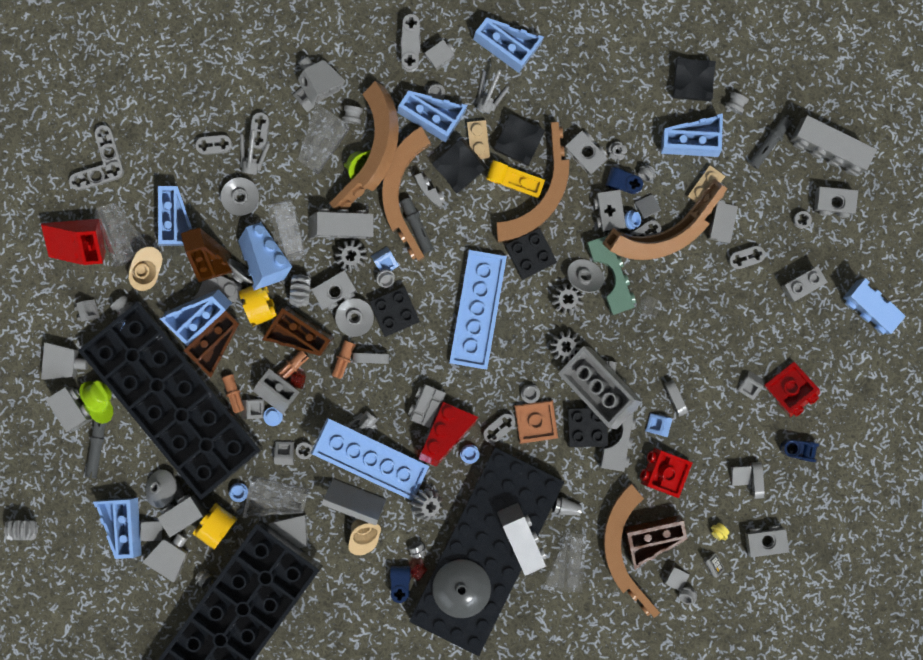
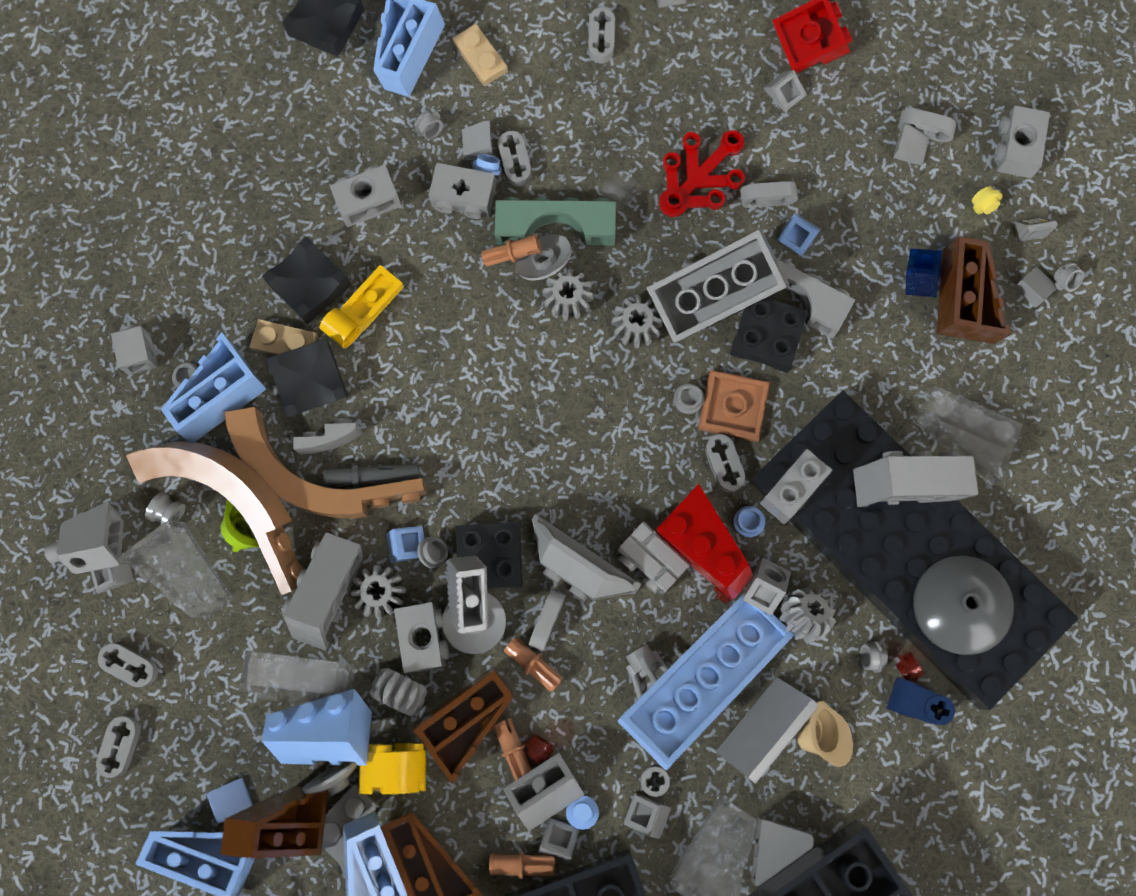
camera: 65 degrees left, 10 degrees down
(208, 220) = (229, 799): none -> light blue slope
(233, 189) = (198, 737): light grey dish -> none
(249, 164) = (173, 699): light grey plant -> none
(366, 309) = (467, 594): none -> light grey brick
(407, 364) = (578, 566): none -> light grey wedge
(410, 42) = (97, 385): light grey piece -> none
(434, 476) = (767, 586): none -> light grey brick
(478, 309) = (534, 430): light blue plate -> none
(486, 103) = (234, 311): light grey plant -> none
(493, 472) = (795, 486): none -> light grey brick
(507, 43) = (158, 247): light blue wedge -> none
(531, 254) = (480, 323): black brick -> none
(536, 217) = (434, 319): medium nougat arch -> none
(566, 507) = (881, 403): light grey cone -> none
(582, 255) = (512, 250): none -> nougat axle
(612, 536) = (946, 353): medium nougat arch -> none
(620, 179) = (422, 159): dark blue piece -> none
(622, 150) = (378, 160): light grey plate -> none
(656, 507) = (923, 272): none -> clear blue brick
(665, 472) = (874, 245): red plate -> none
(672, 239) = (534, 110): medium nougat arch -> none
(672, 351) = (700, 176): none -> red plant
(722, 222) = (537, 50): light grey panel -> none
(802, 450) = (901, 53): dark blue piece -> none

